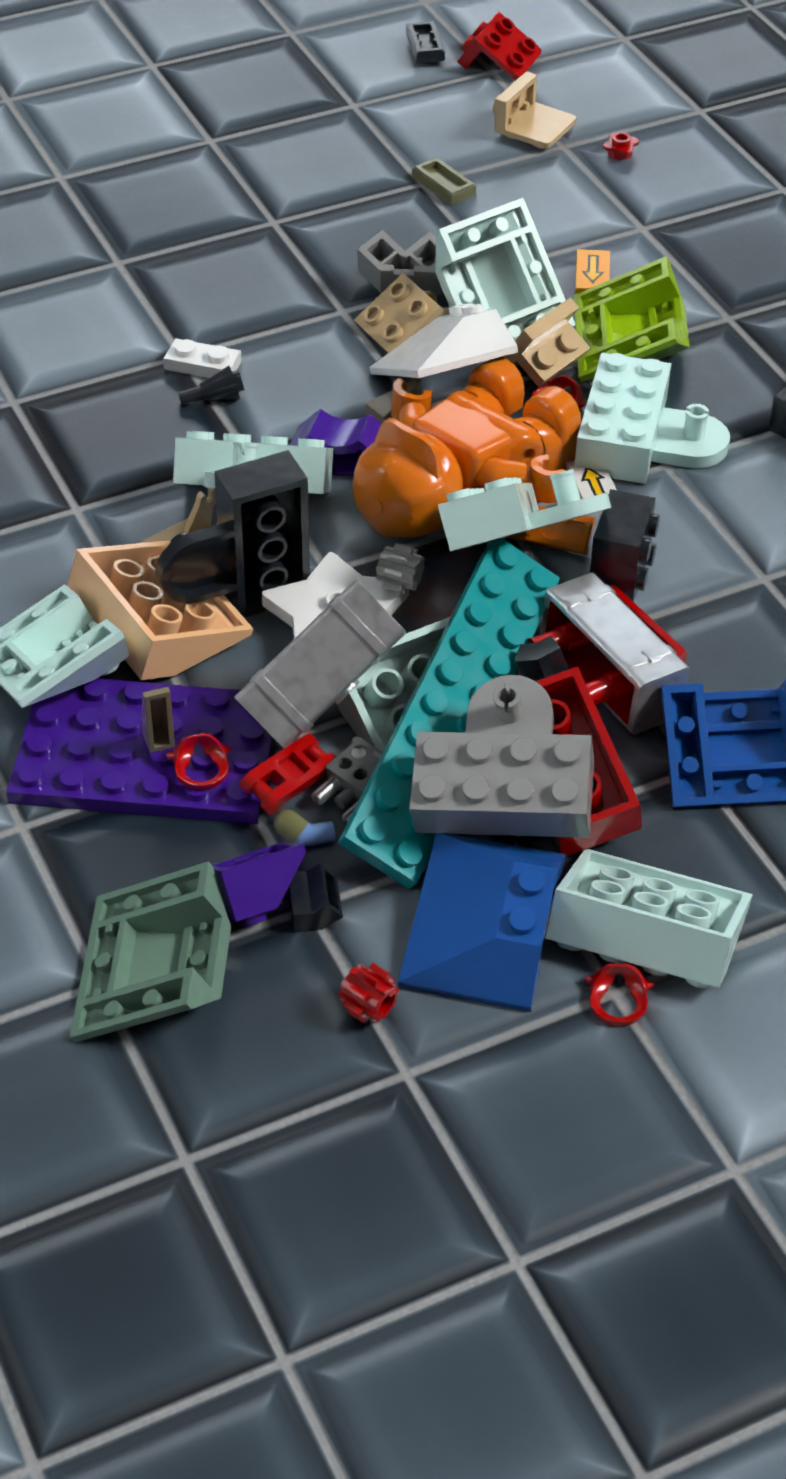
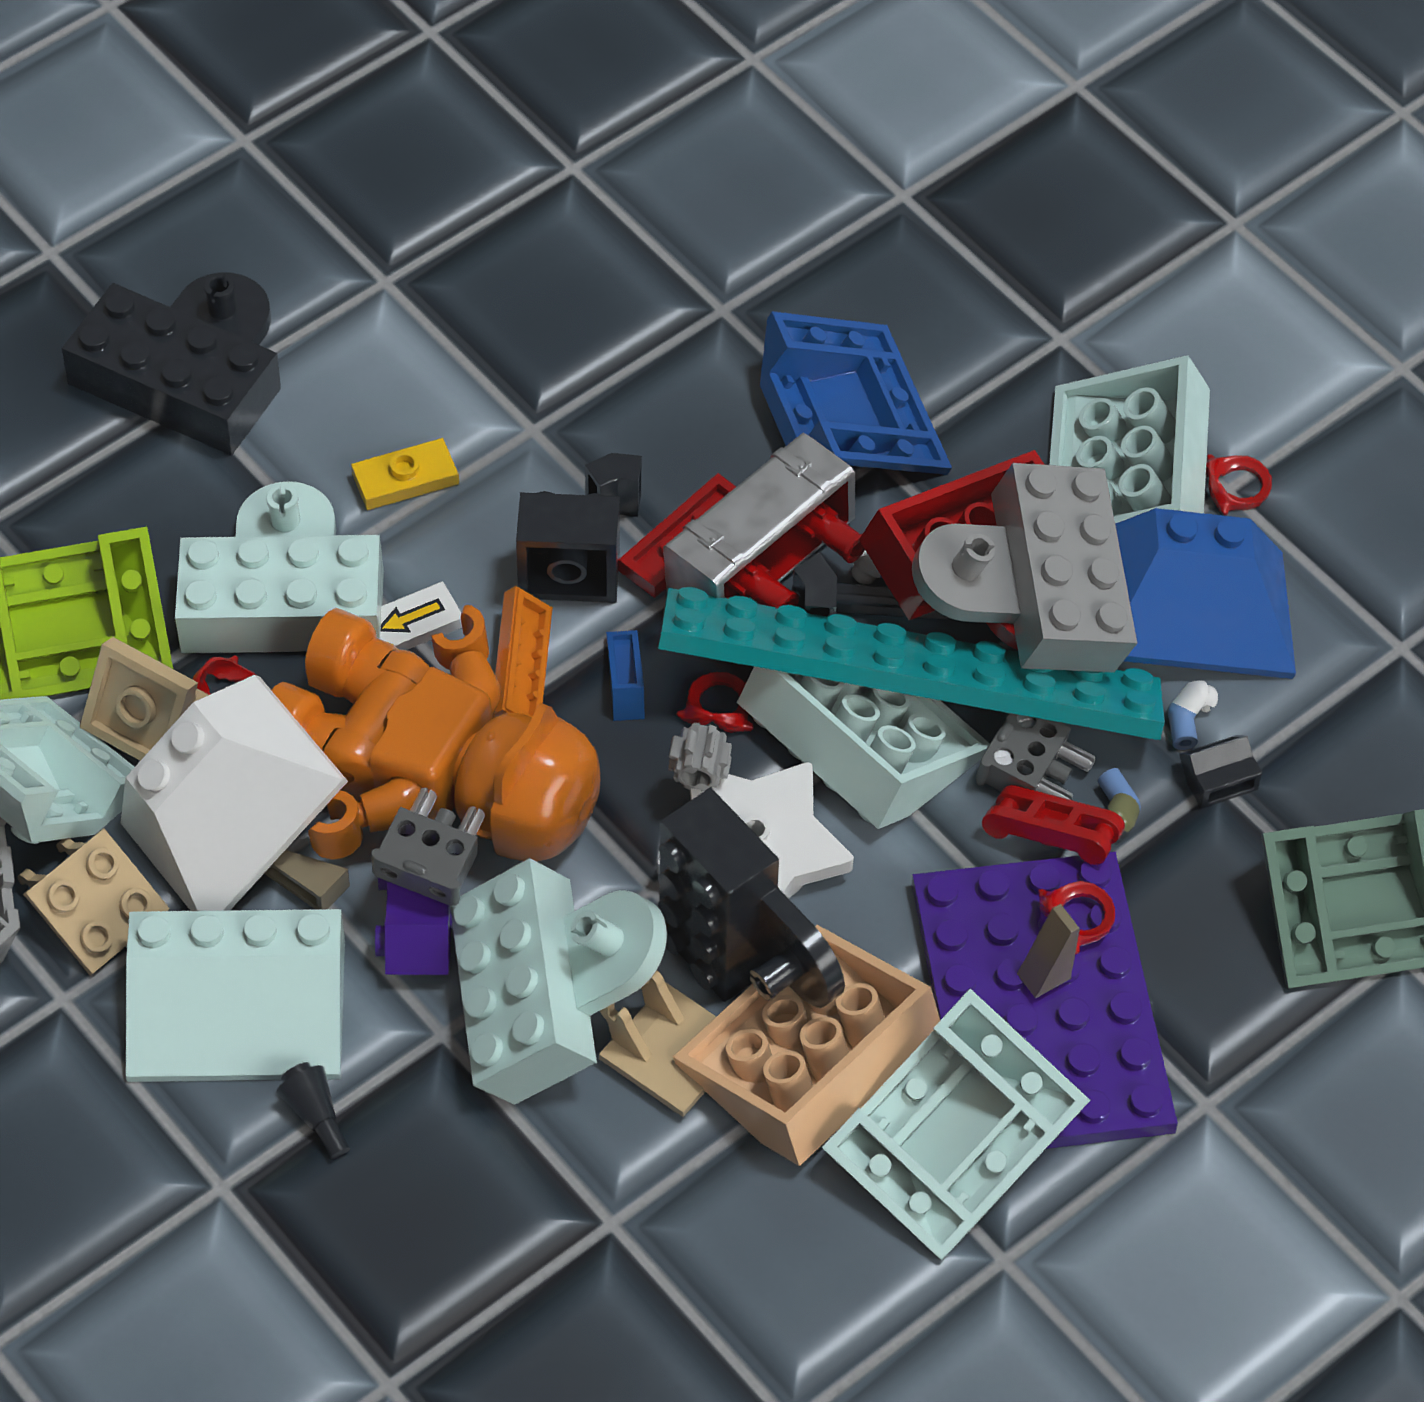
camera: 105 degrees left, 10 degrees up
(200, 358) = (237, 1148): white plate -> none
(257, 880) = (1214, 823): dark purple slope -> none
(310, 364) = (233, 994): none -> light aqua slope
(320, 664) = (938, 776): flat silver piece -> none
(356, 417) = (427, 852): none -> dark grey piece
(368, 993) = (1339, 681): red gear -> none
(377, 891) = (1181, 712): none -> arm
(511, 509) = (613, 629): light aqua brick -> none
(688, 578) = (619, 477): none -> black piece
(729, 502) = (405, 474): none -> yellow plate

